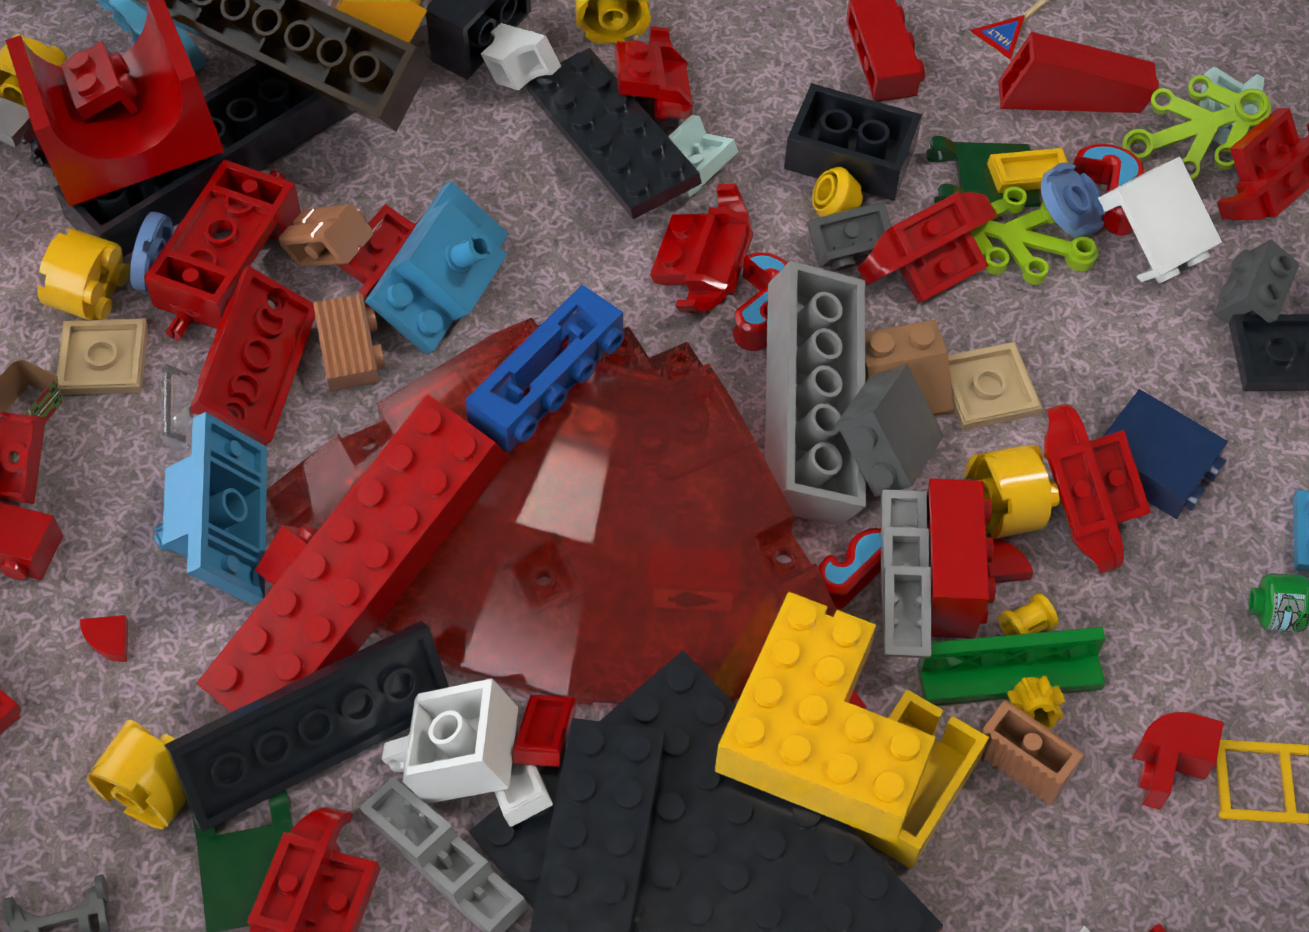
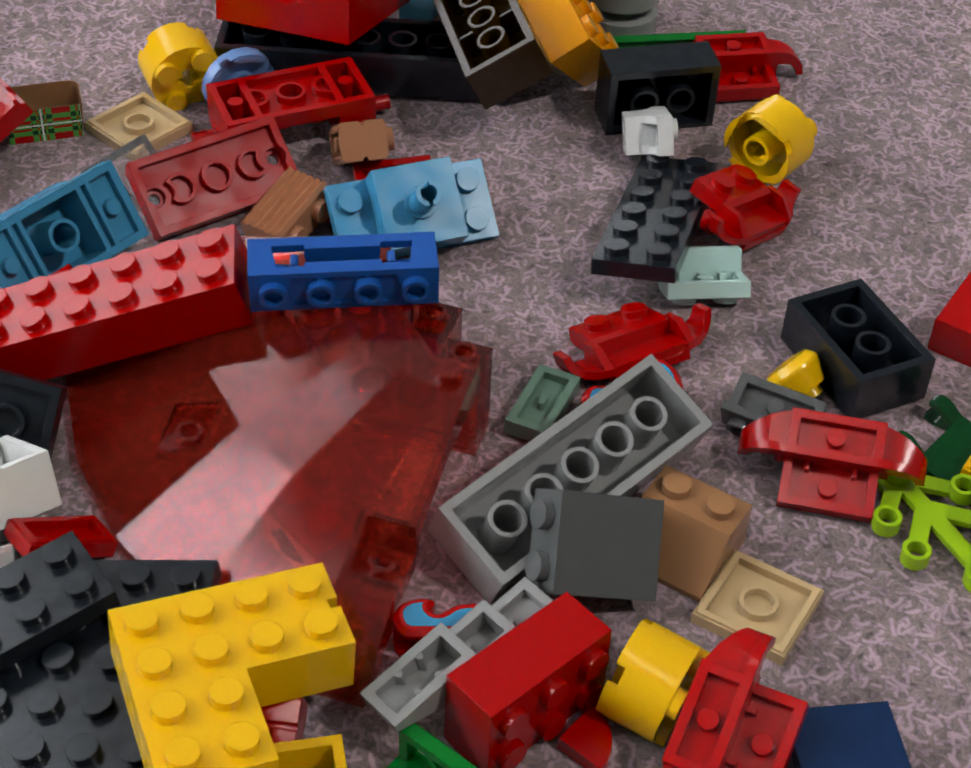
camera: 45 degrees right, 15 degrees down
(709, 345) = (542, 402): none -> sand green plate

